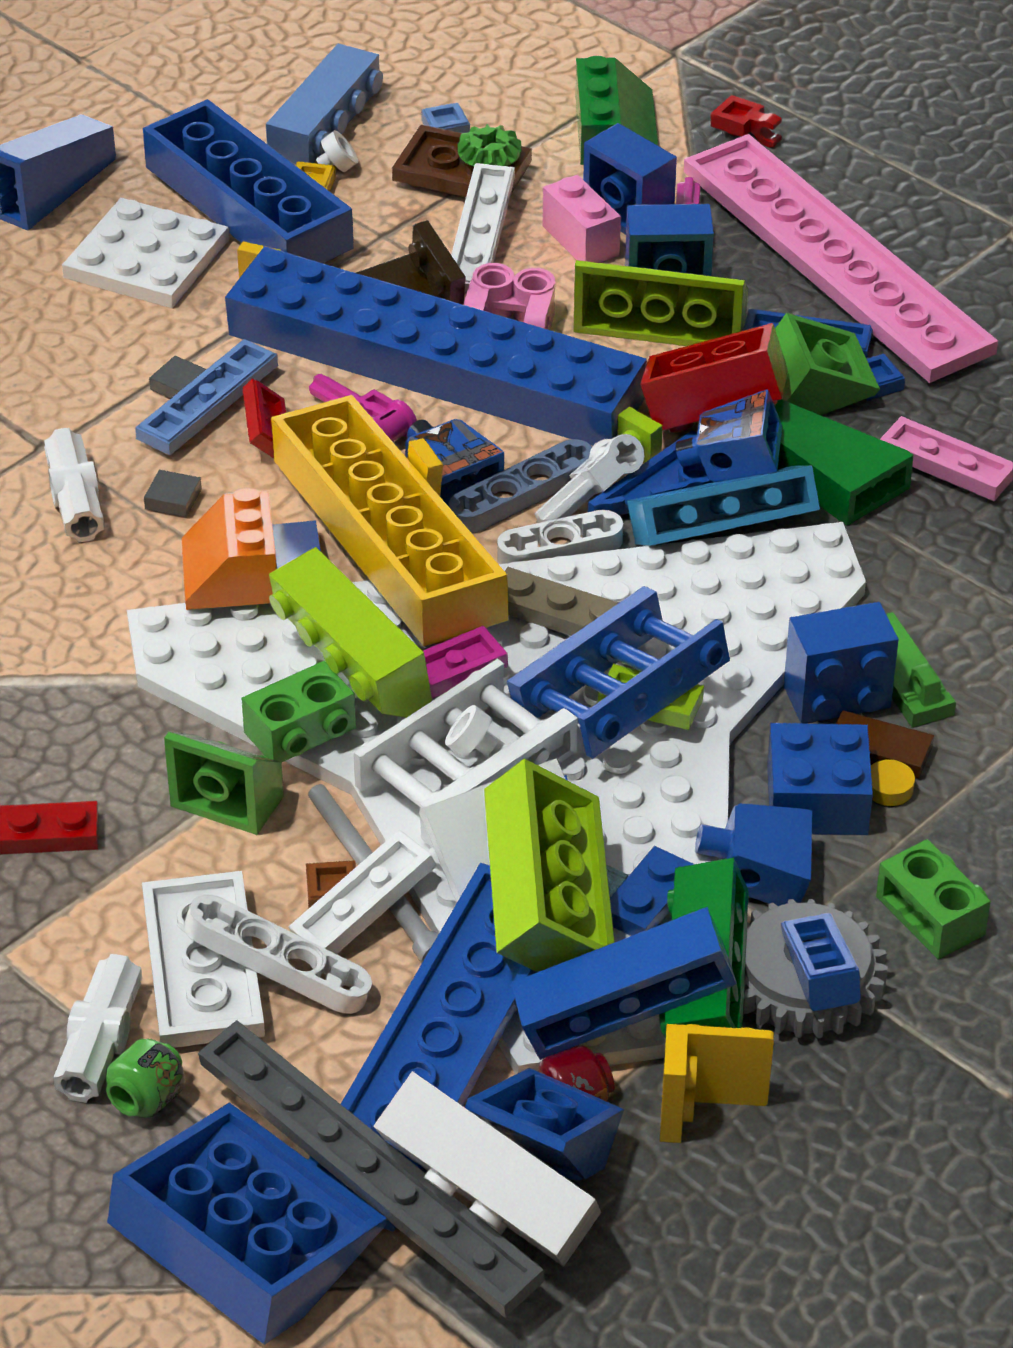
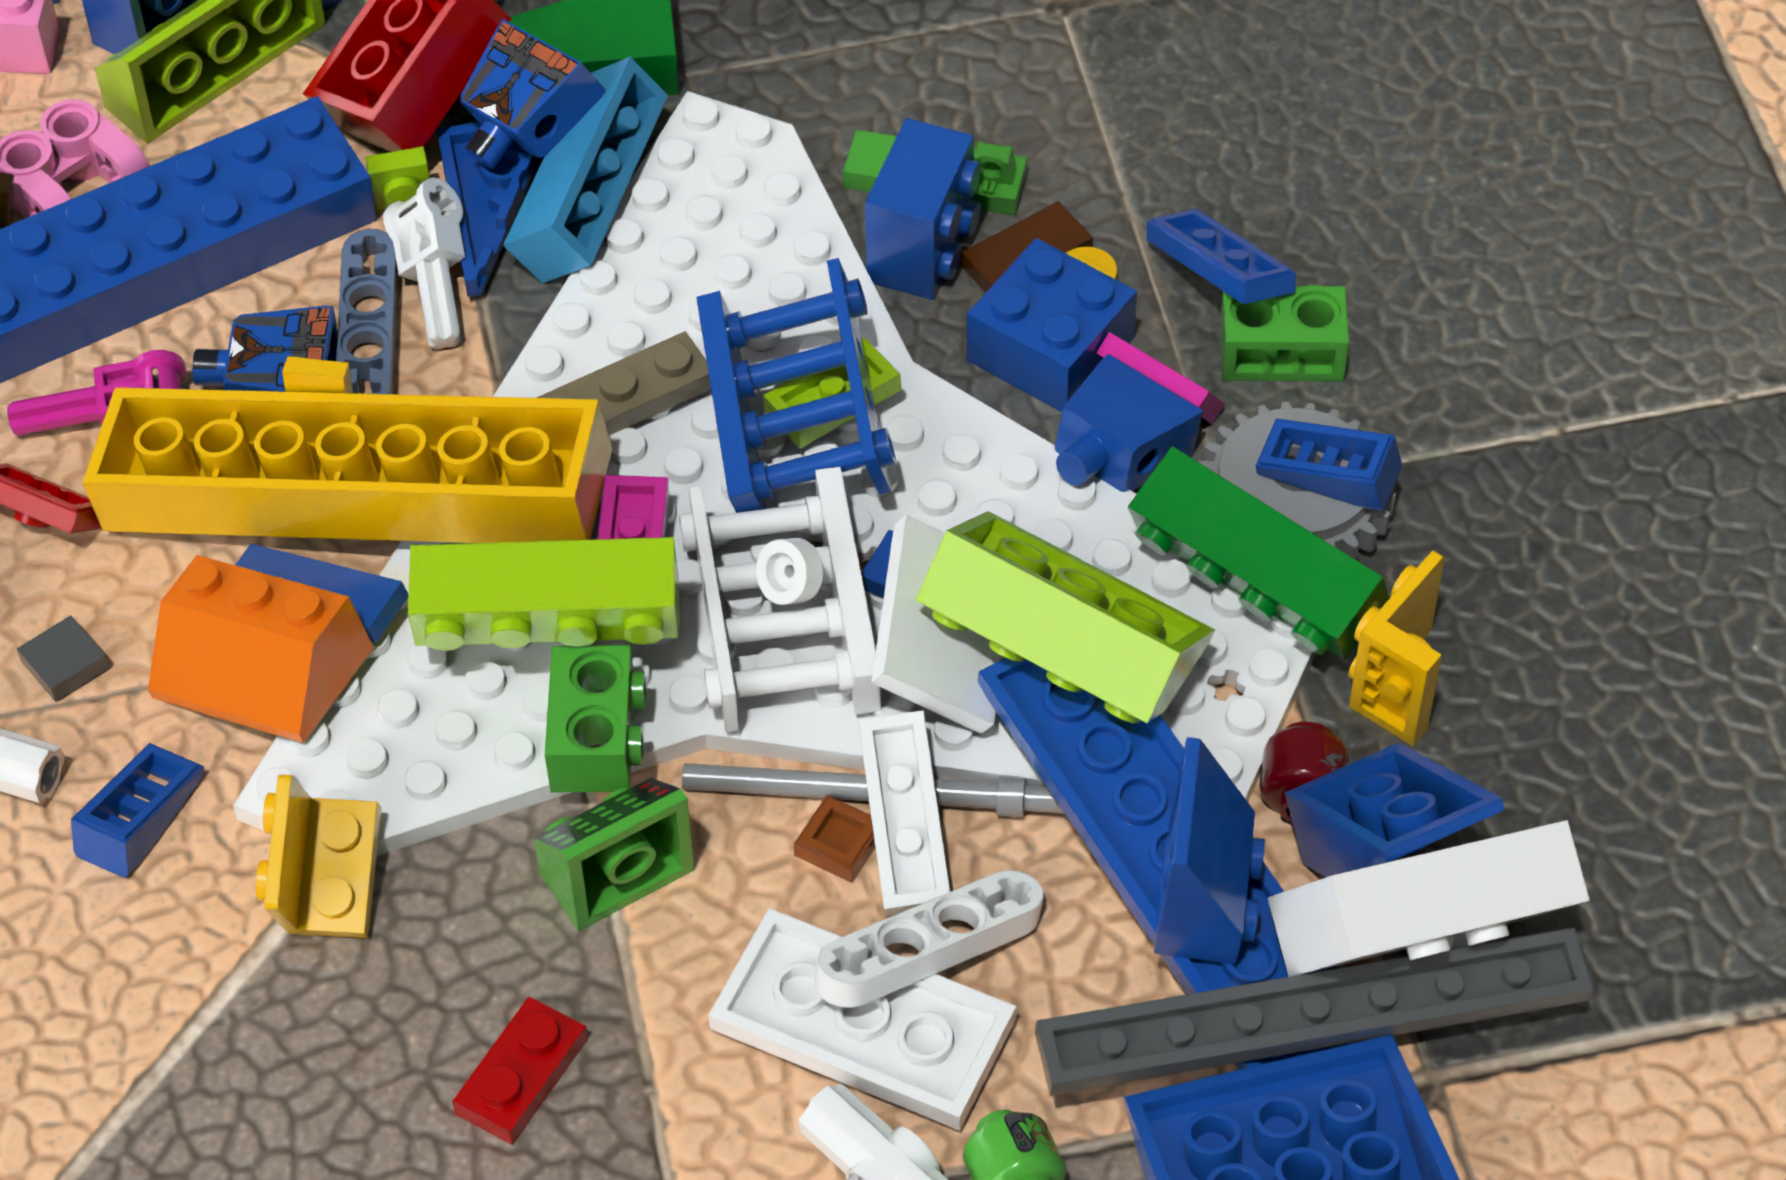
camera: 55 degrees left, 10 degrees up
(95, 574) = (122, 844): none -> blue slope
(100, 649) = (318, 862): none -> yellow bracket
(403, 1018) = (1207, 864): none -> blue slope
(599, 530) = (485, 319): white beam -> none
(623, 983) = (1265, 636): blue brick -> none
(643, 896) = (1102, 537): blue plate -> none
(830, 855) = (1162, 375): none -> dark pink plate
(956, 828) = (1221, 256): none -> blue tile

